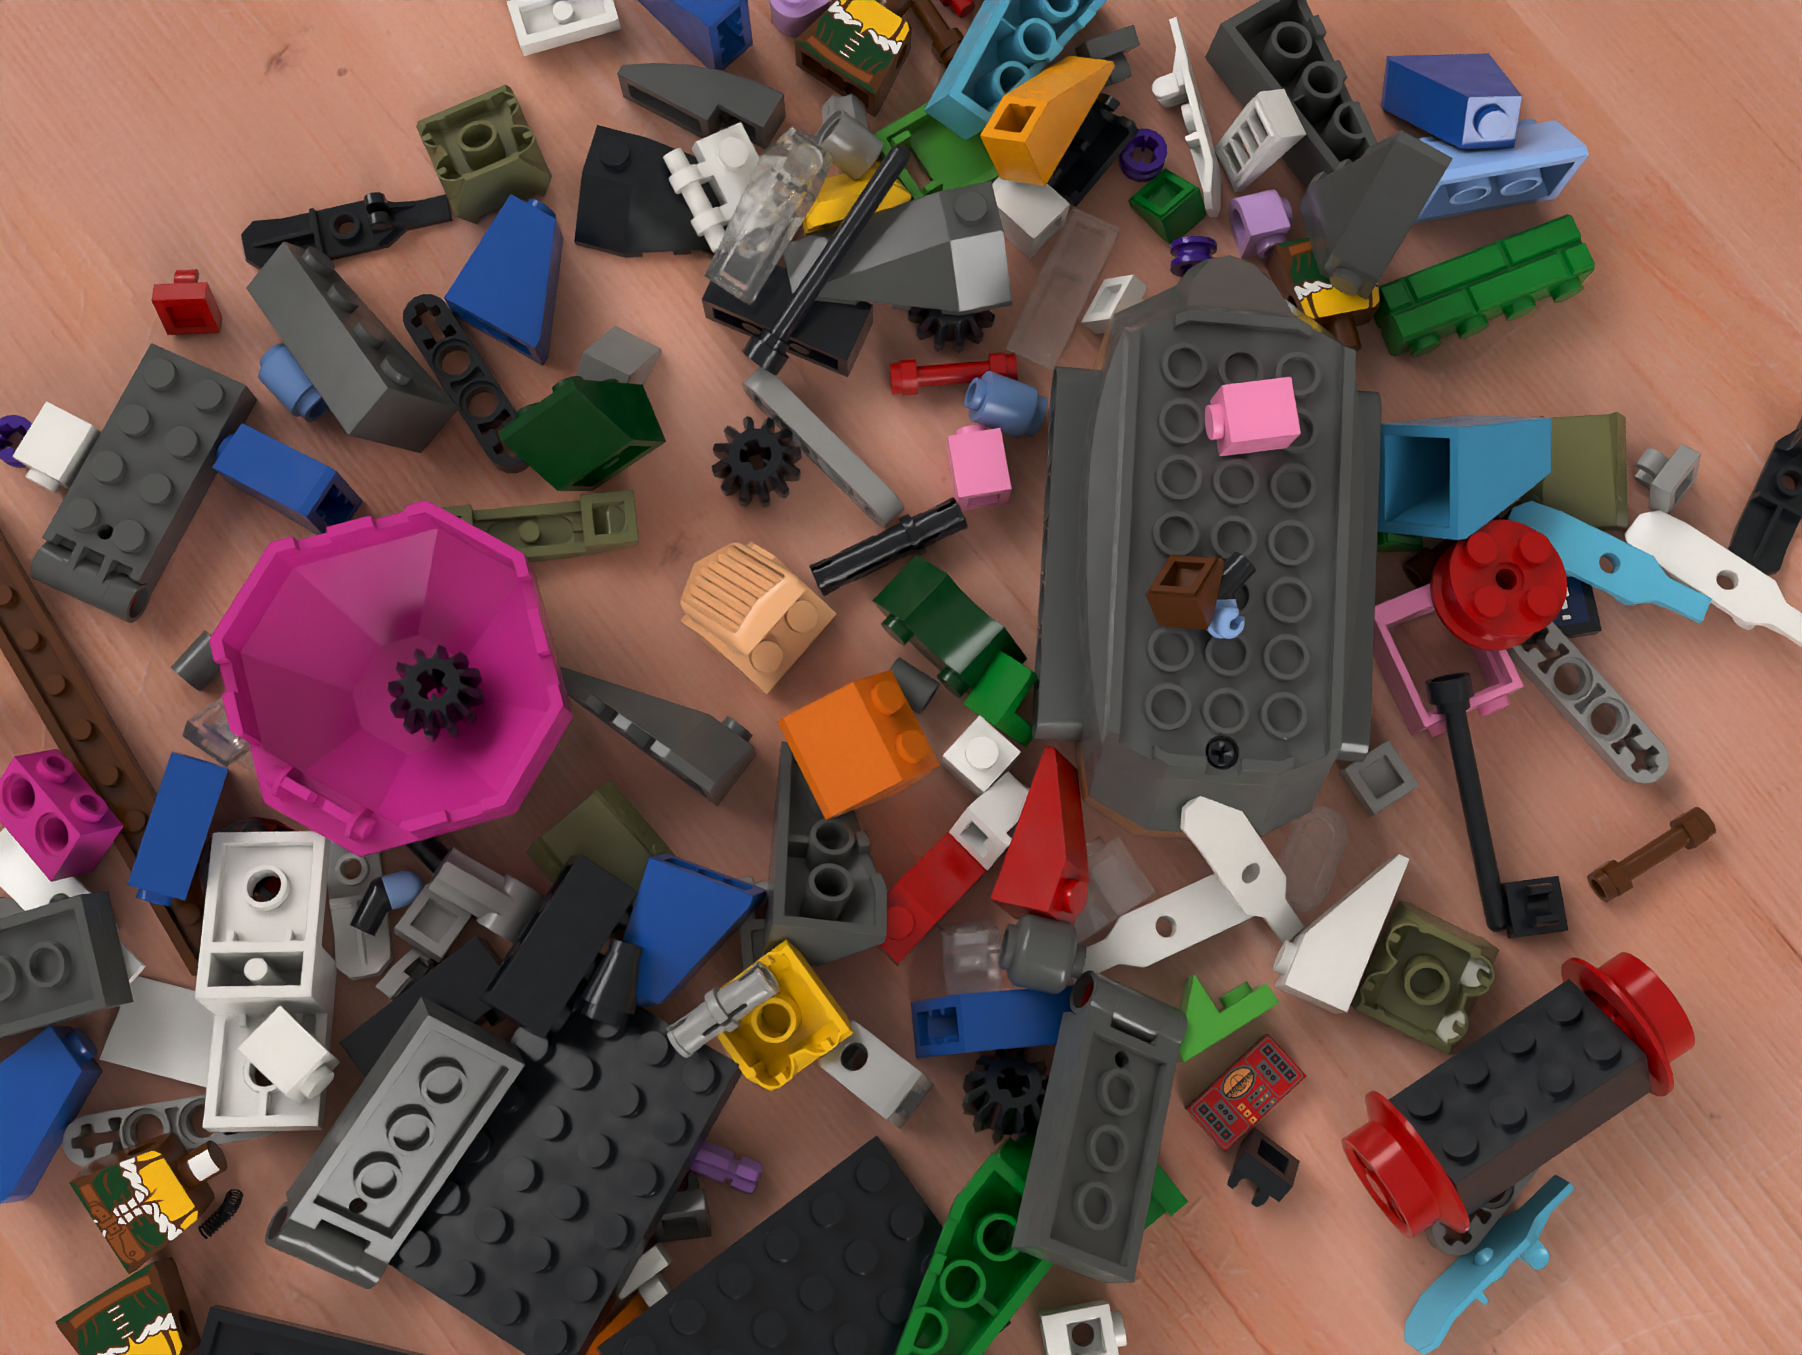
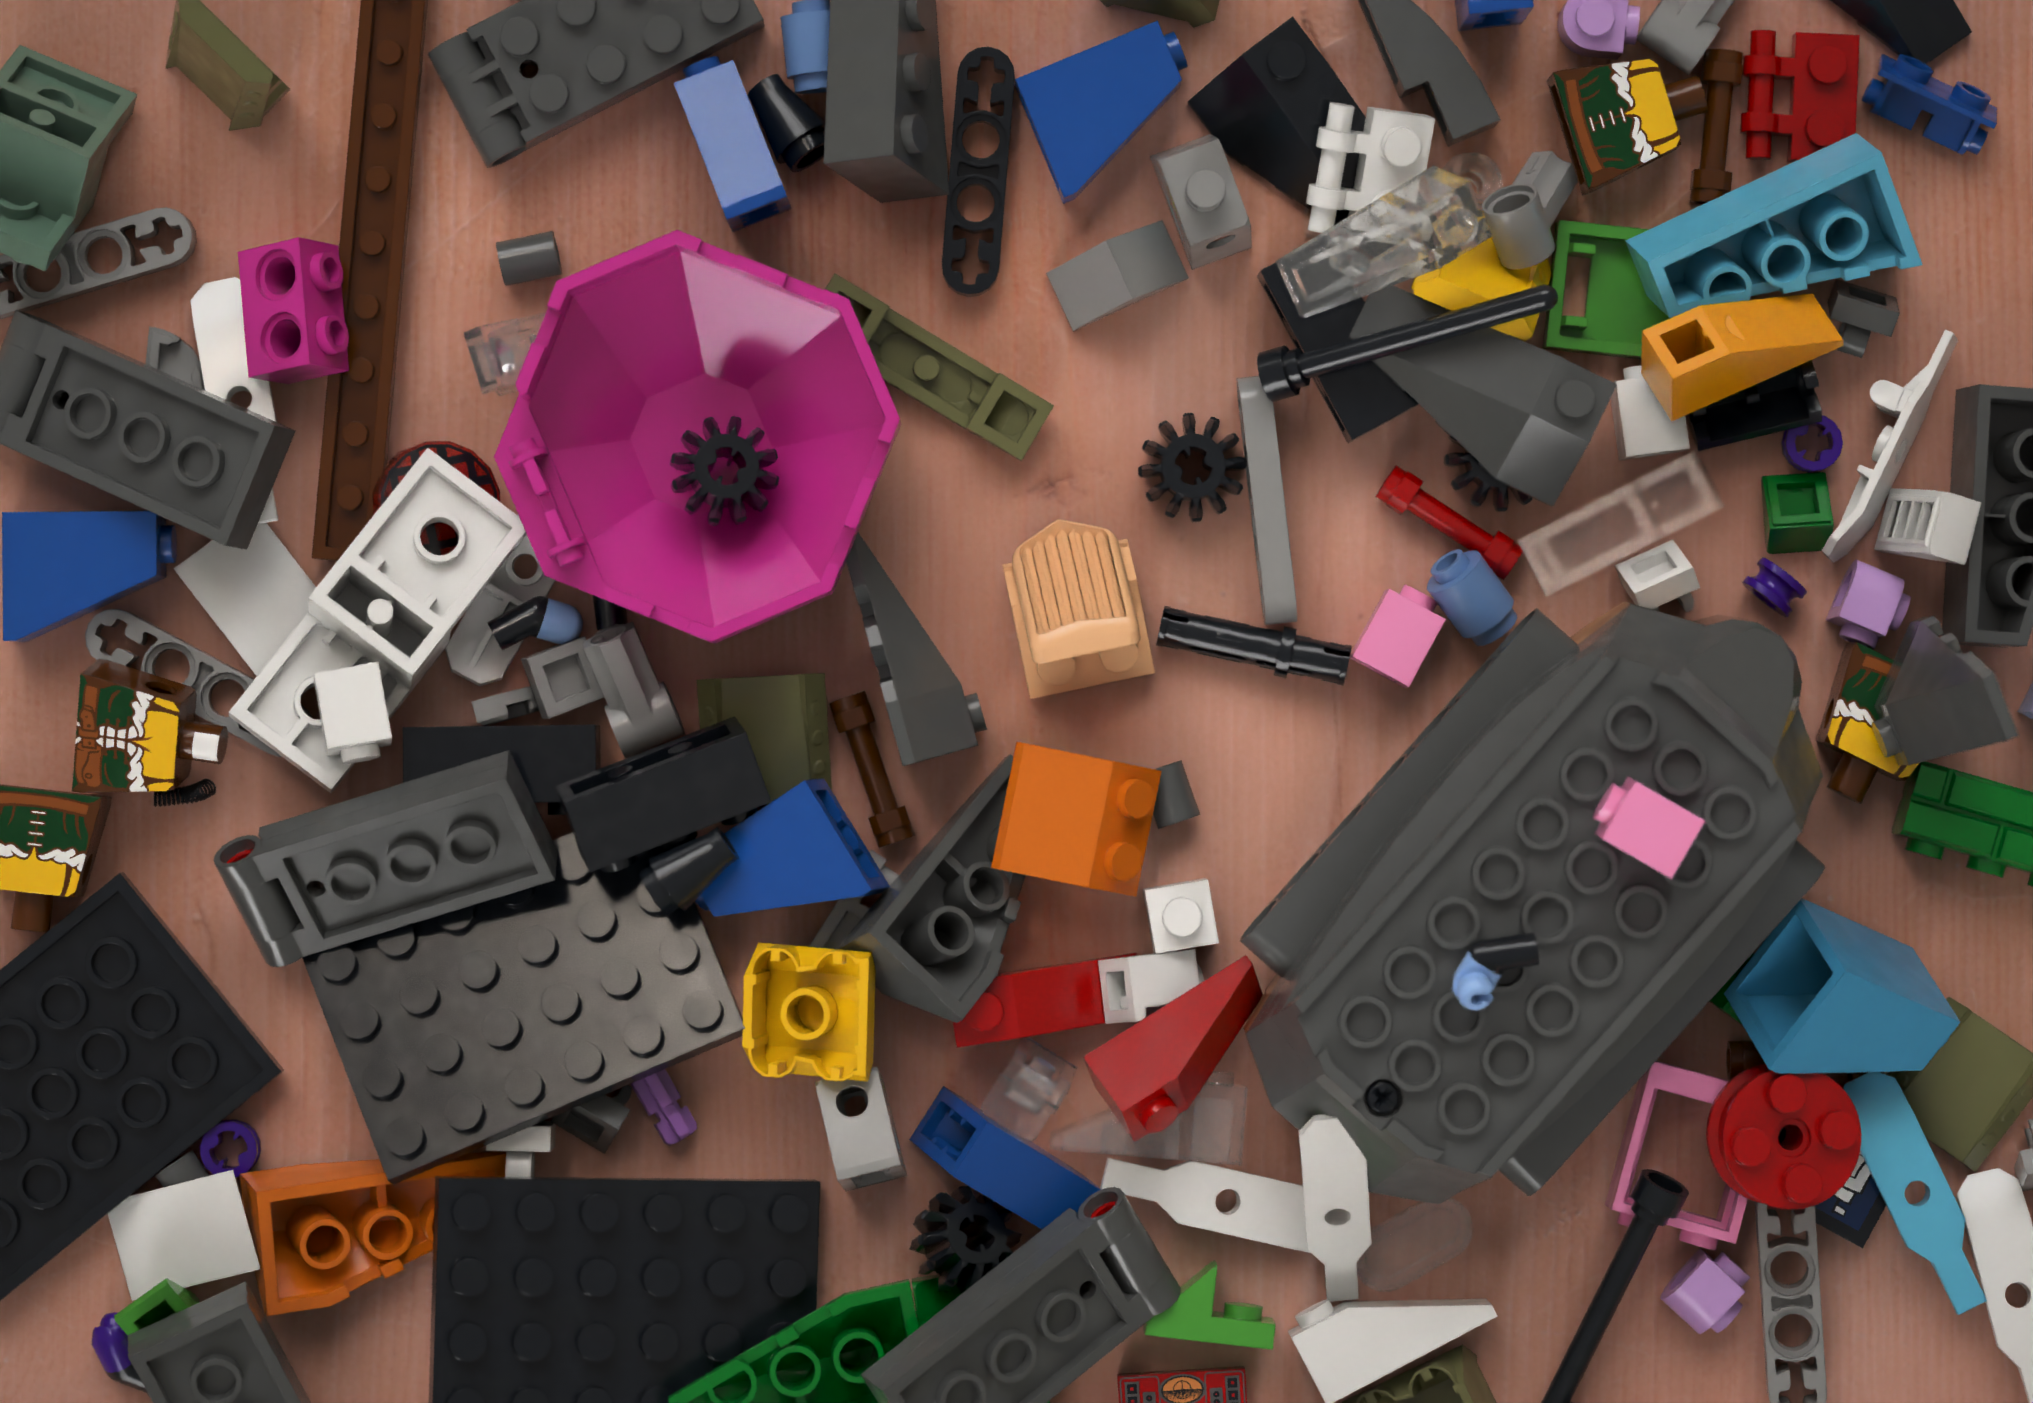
camera: 40 degrees right, 10 degrees up
(177, 829) = (401, 415): blue slope -> none
(319, 440) = (789, 124): none -> black cone
(584, 432) = (1049, 324): dark green slope -> none
(625, 282) = (1203, 200): none -> light grey torso
(657, 799) = (854, 717): none -> reddish brown bar
(722, 1009) = (767, 971): light grey pin -> none
(943, 625) = (1246, 772): dark green brick -> none
(1001, 693) = (1244, 874): green panel -> none
(1041, 953) = (1090, 1142): dark grey head -> none
(1186, 591) = (1460, 935): reddish brown slope -> none
(1379, 778) = (1537, 1221): light grey plate -> none
(1527, 736) = (1706, 1291): none -> lavender plate

